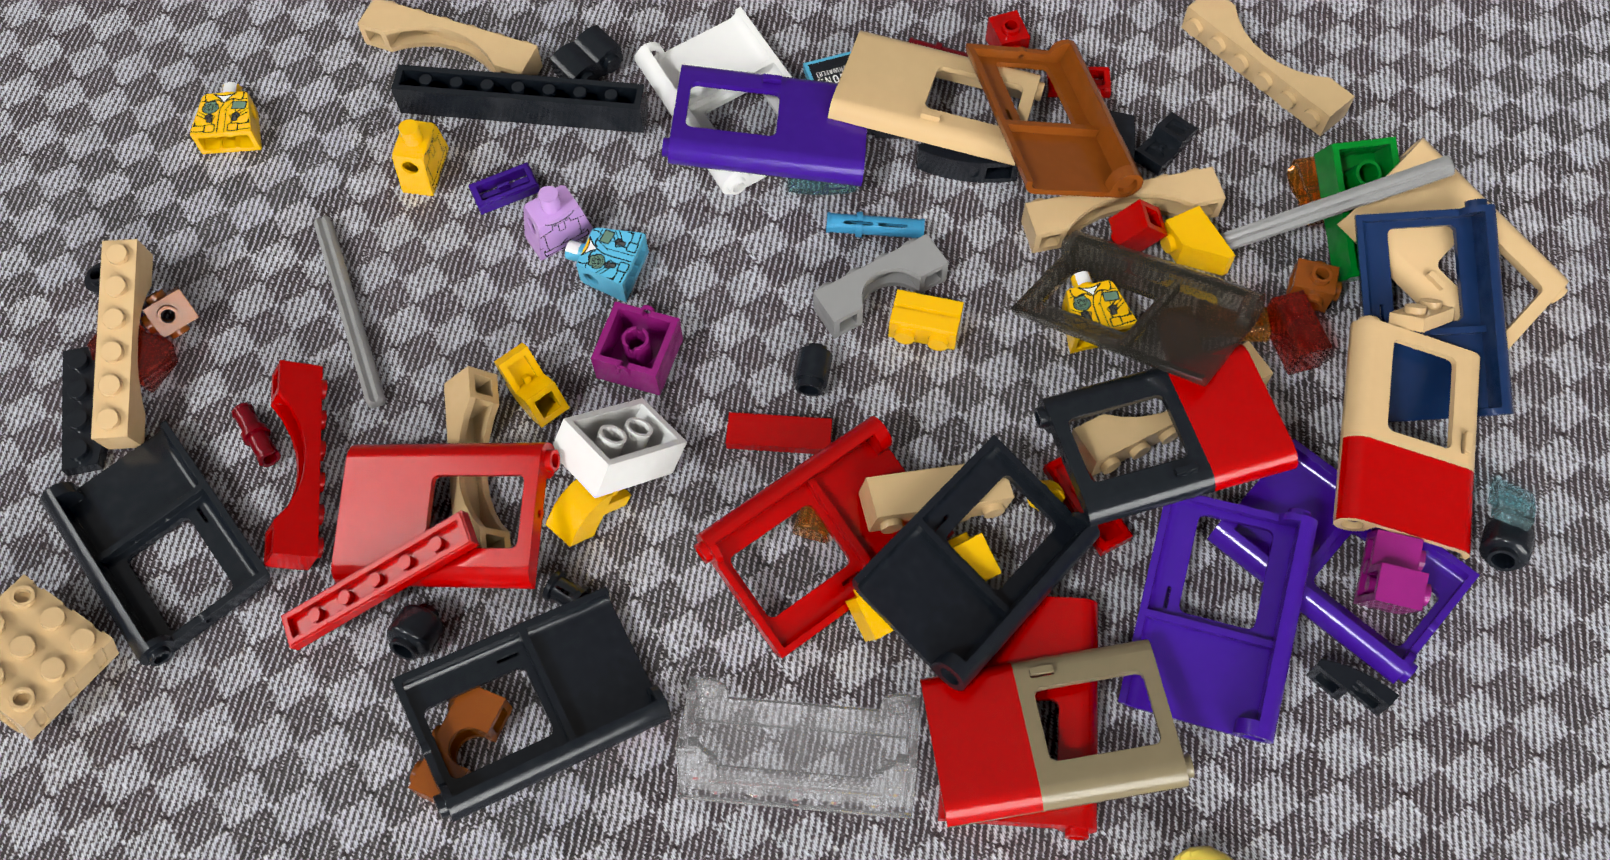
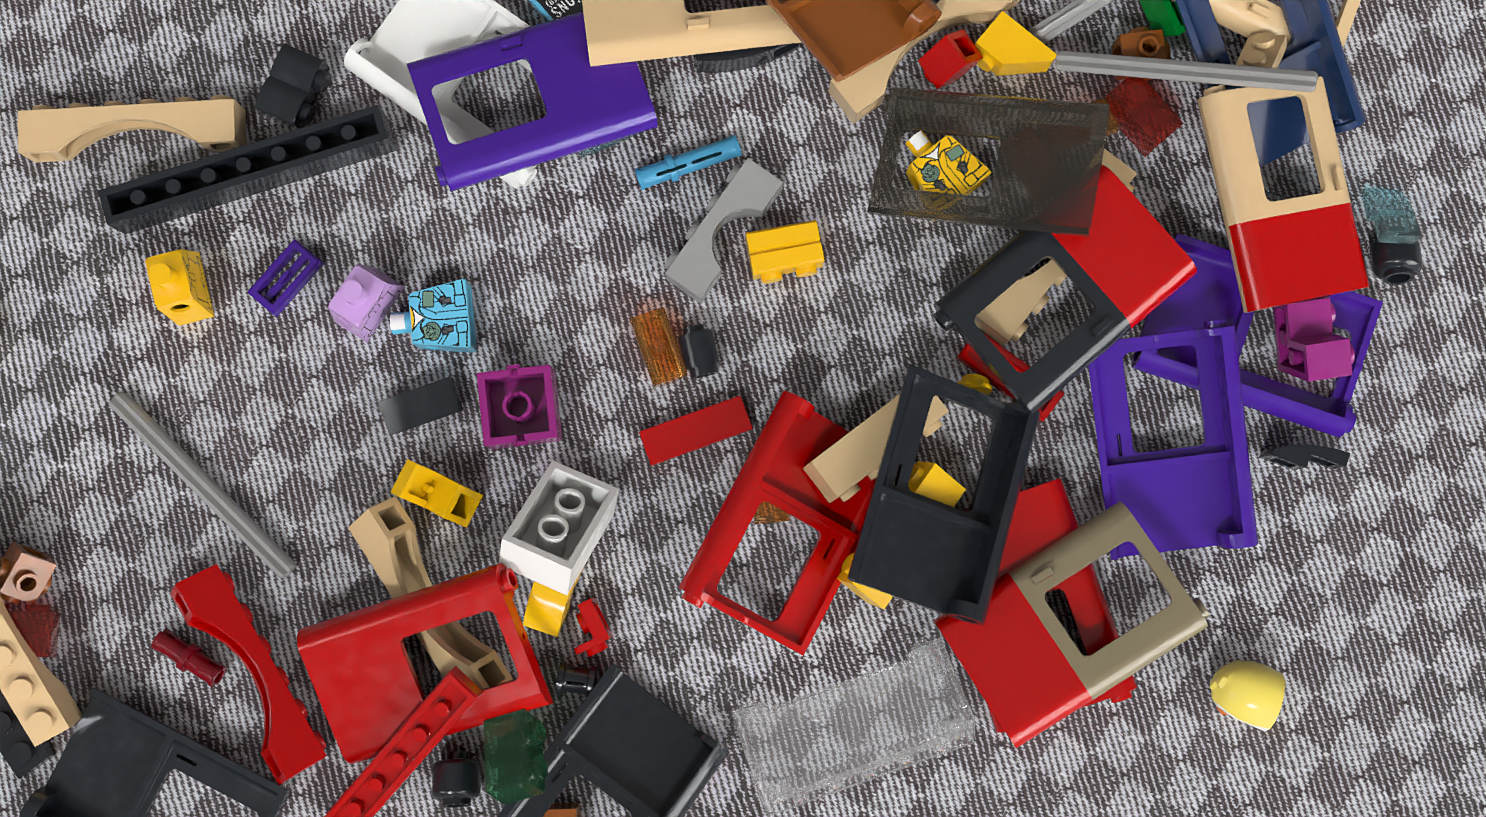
camera: 30 degrees left, 20 degrees up
(475, 617) = (514, 757): none -> clear green brick
(557, 317) = (420, 406): none -> black slope
(607, 554) = (593, 621): none -> red bracket
(779, 353) = (658, 347): none -> clear orange brick
(1351, 297) = (1187, 71): none -> light grey axle

